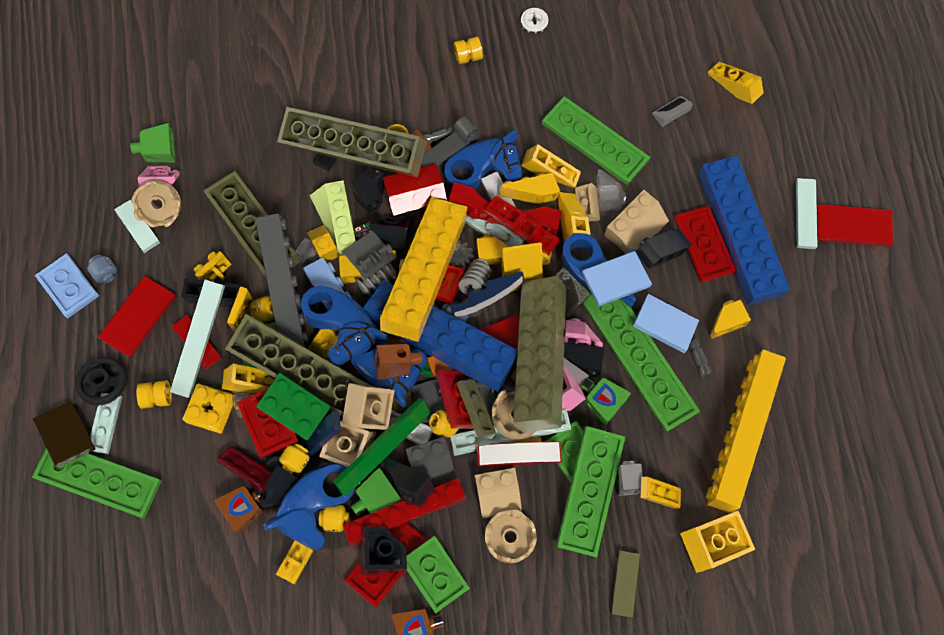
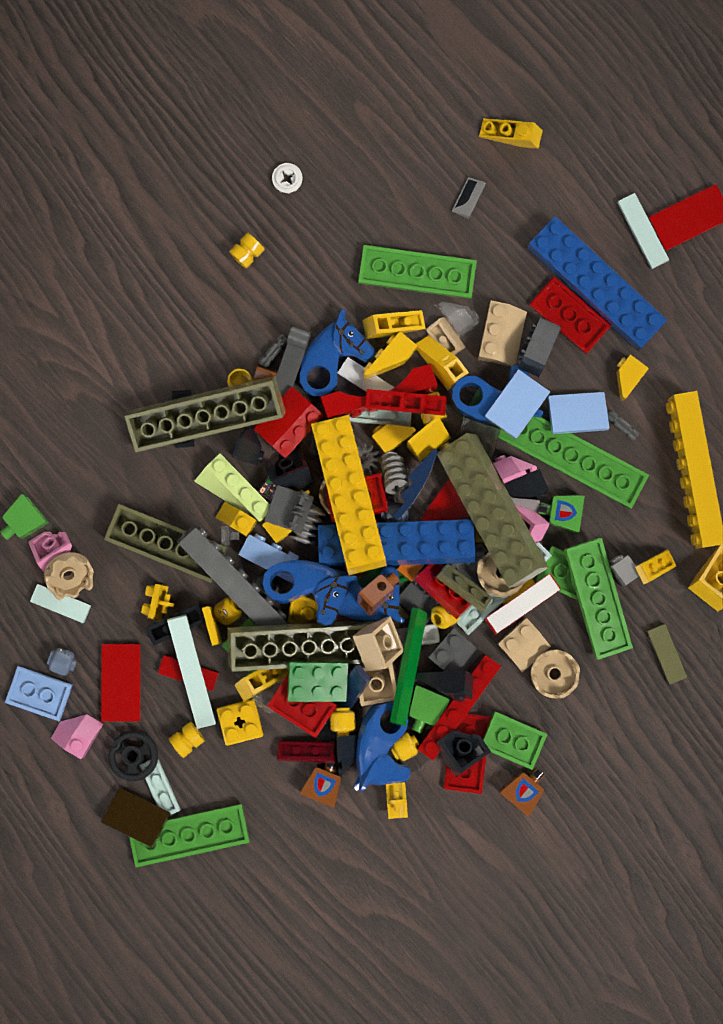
camera: 30 degrees left, 15 degrees up
(71, 337) = (77, 734): none -> bright pink slope

